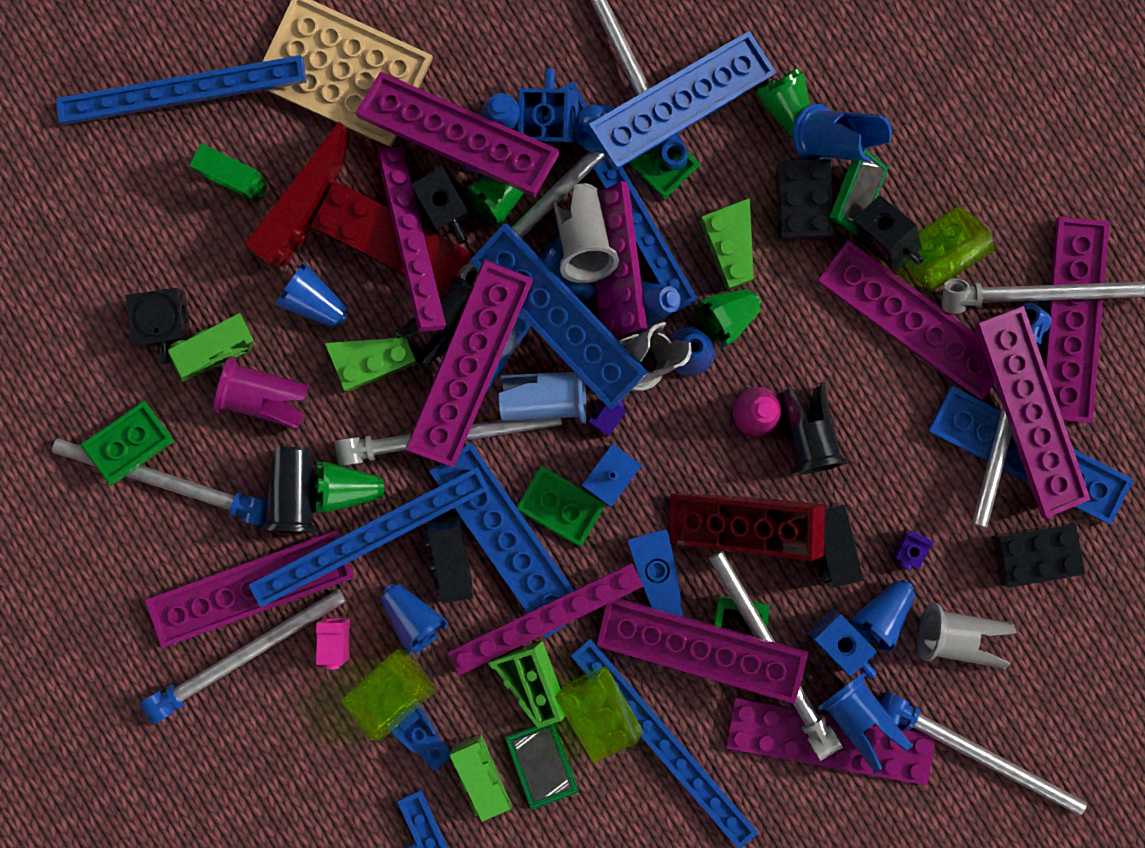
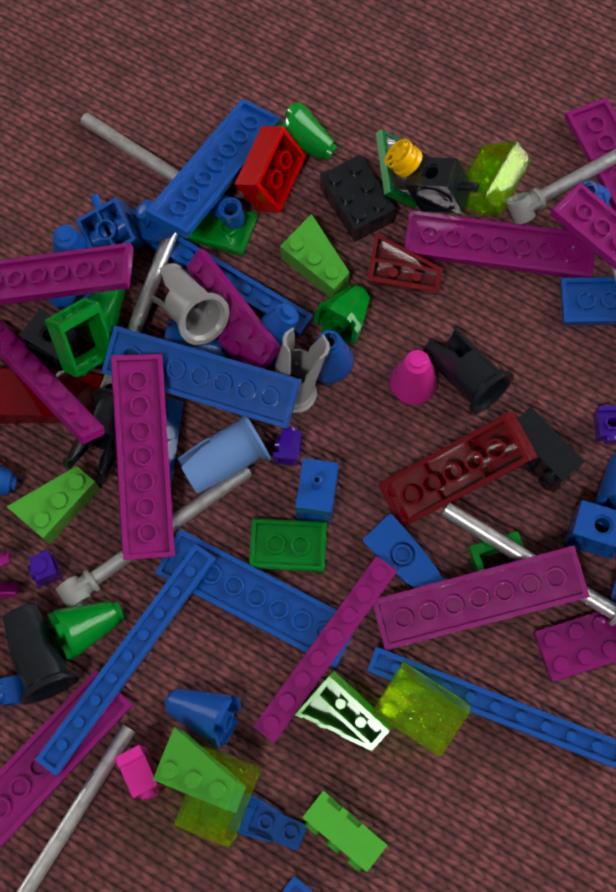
camera: 25 degrees left, 15 degrees down
(333, 415) = (44, 568): none -> dark purple brick
(380, 675) = (197, 773): none -> bright green wedge
(449, 558) = (211, 640): black wedge -> none
(462, 202) = (70, 317): none -> green window
(542, 765) = (395, 789): tile -> none
(735, 129) = (270, 169): none -> red brick
(806, 300) = (402, 269): none -> dark red wedge
(838, 134) = (356, 127): blue piece -> none
(869, 192) = (404, 158): none -> yellow wheel

